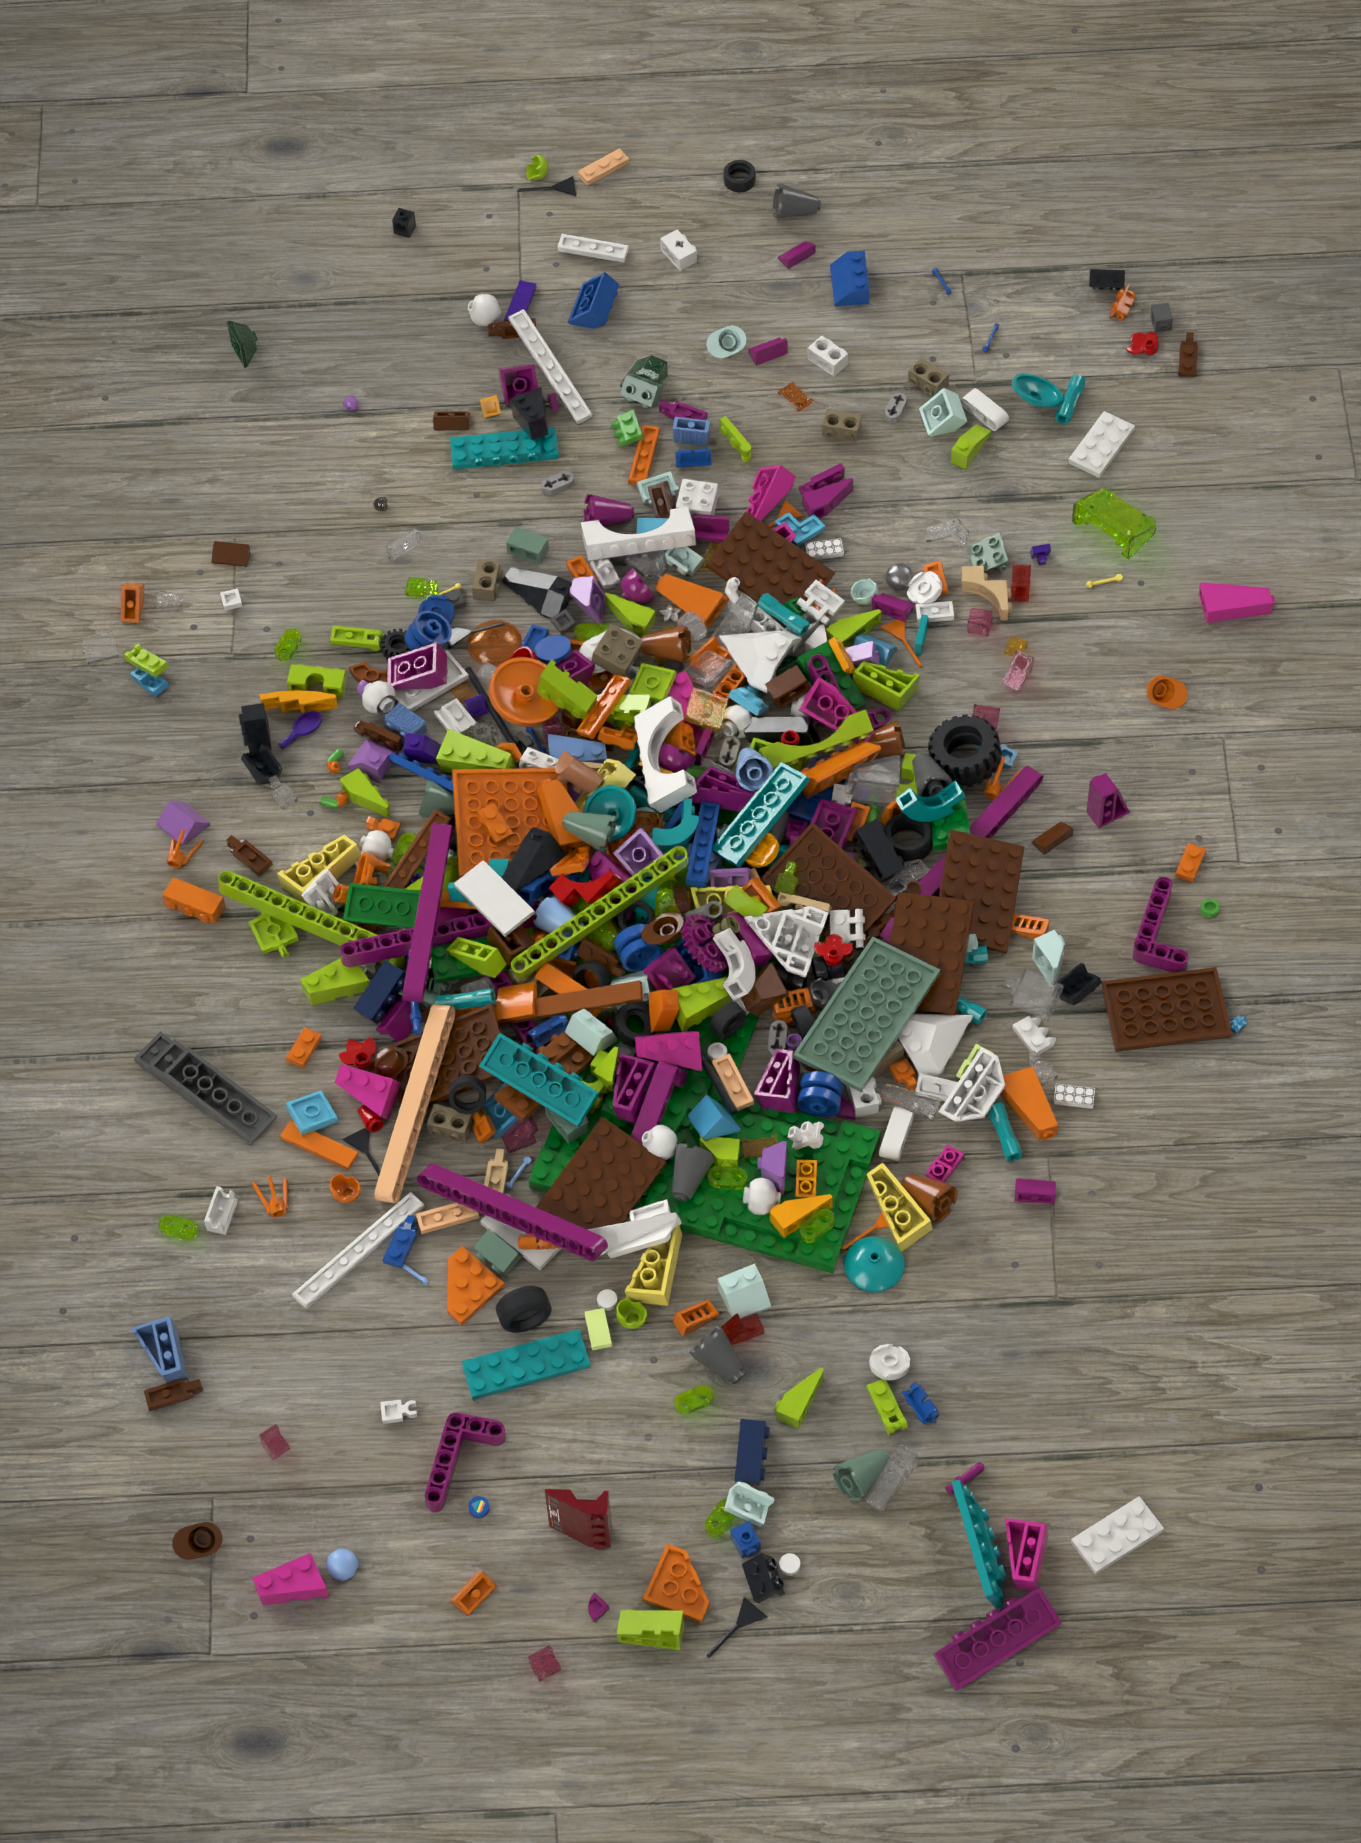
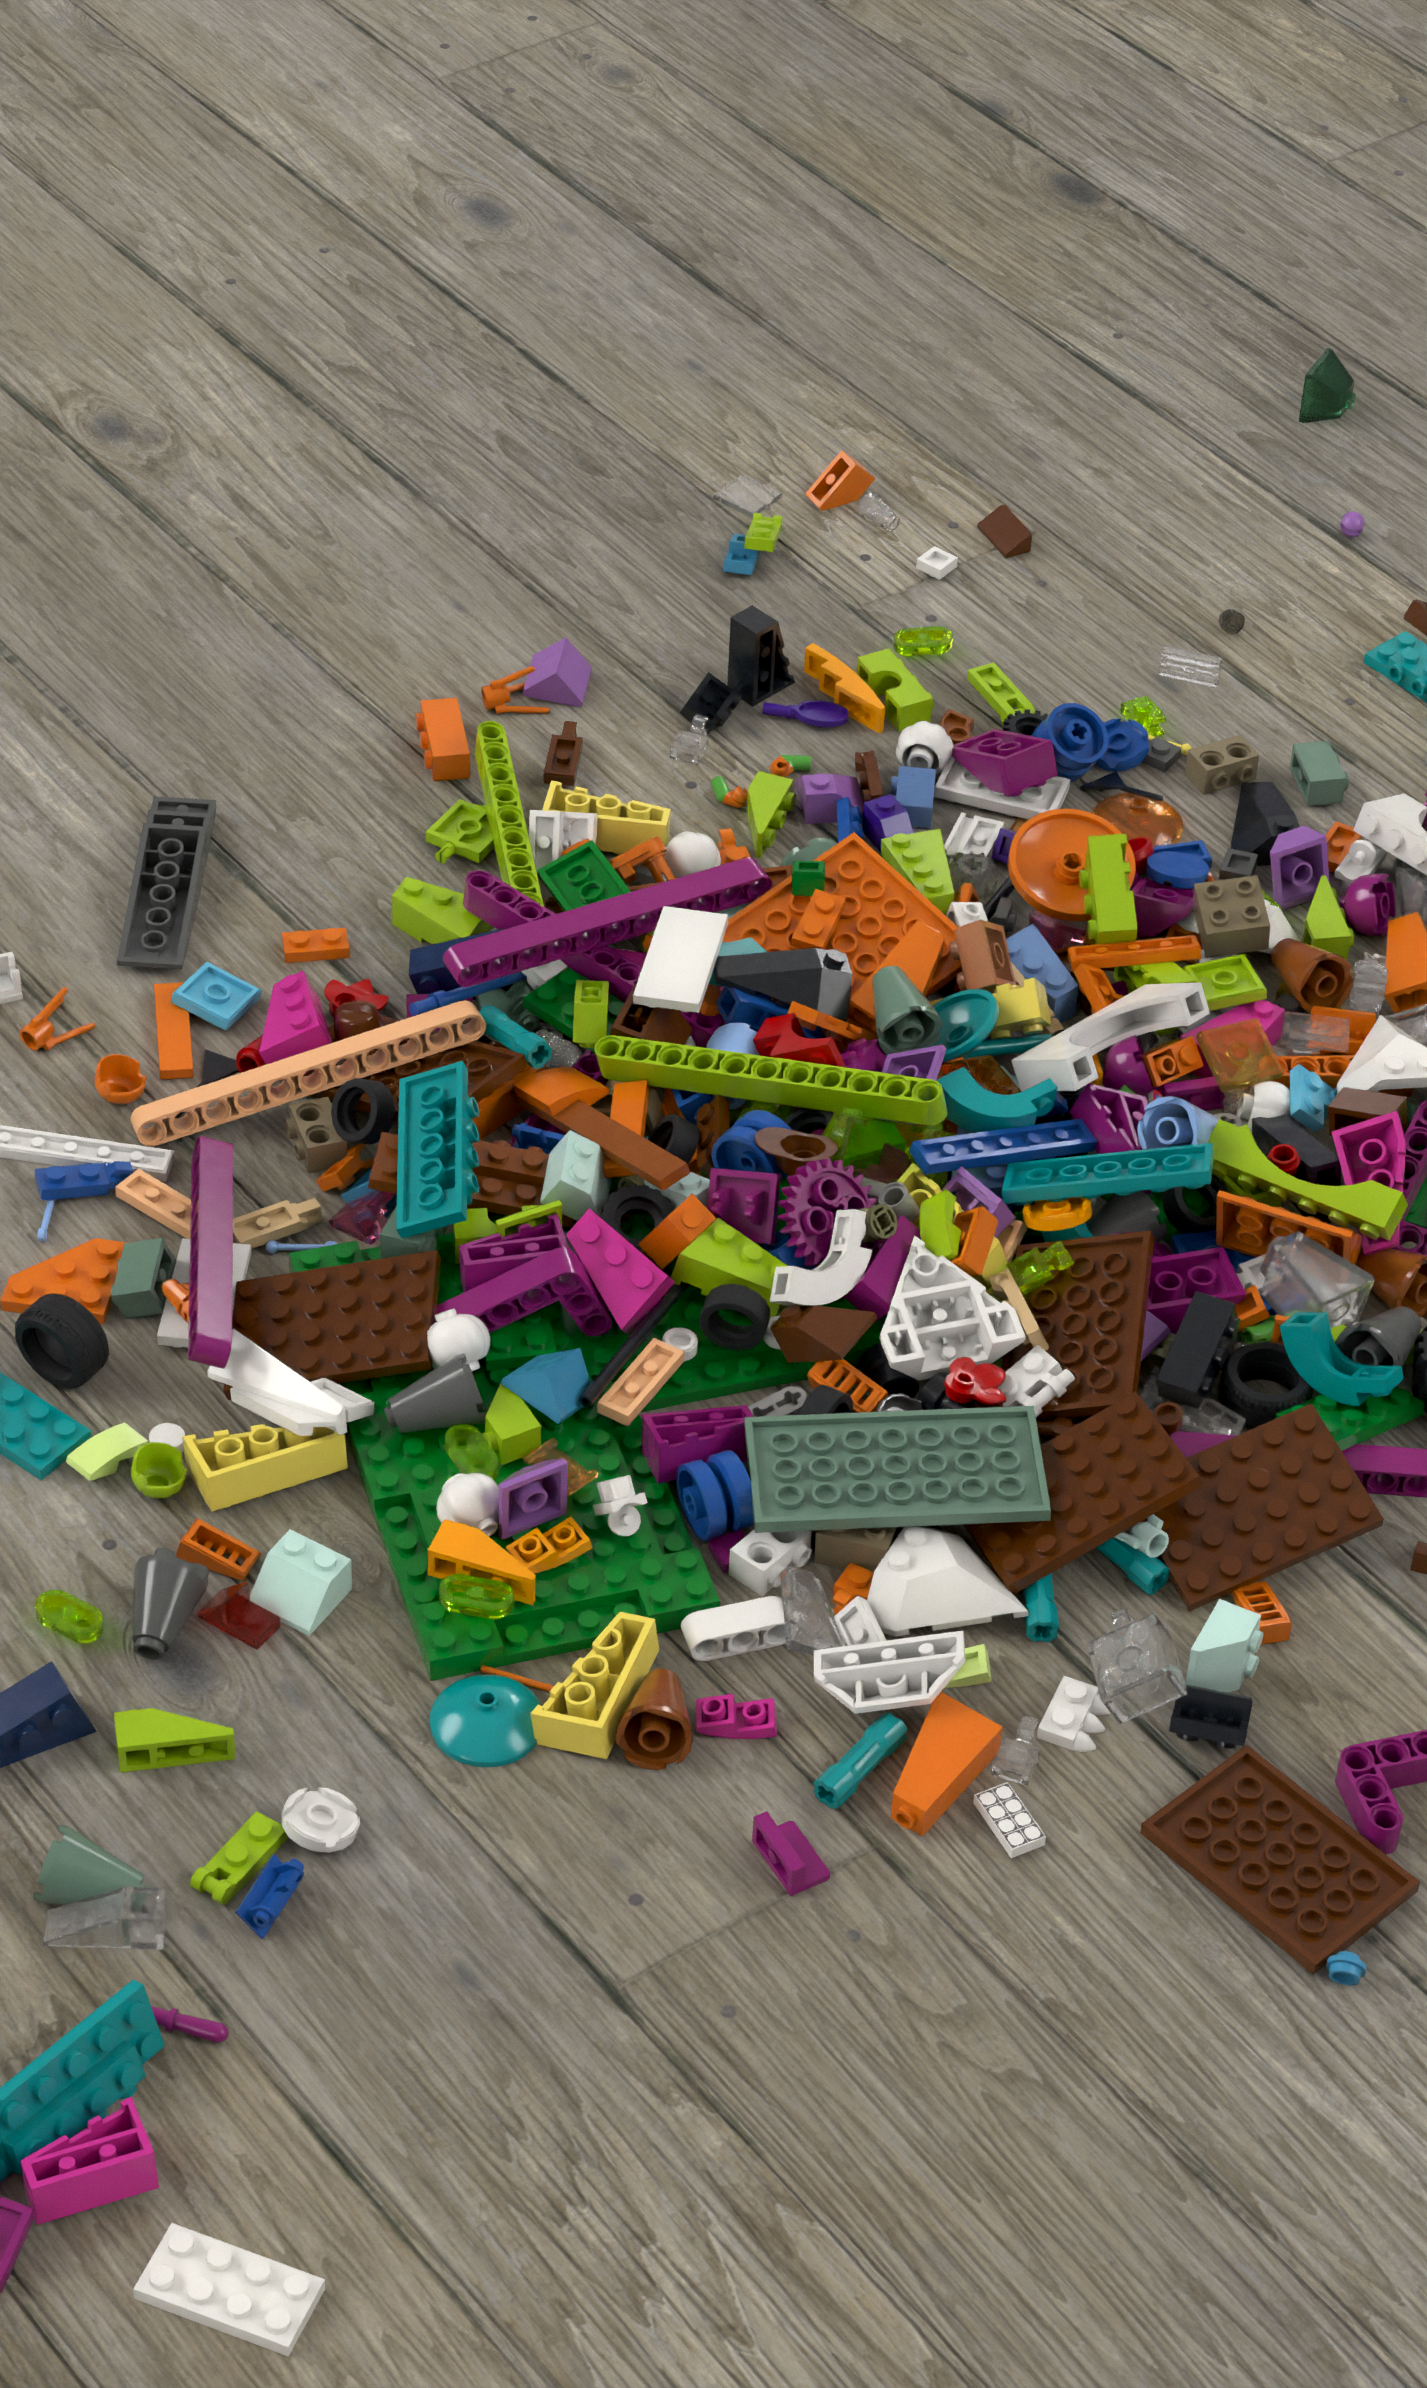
camera: 50 degrees right, 15 degrees down
(465, 808) = (807, 877): none -> green slope

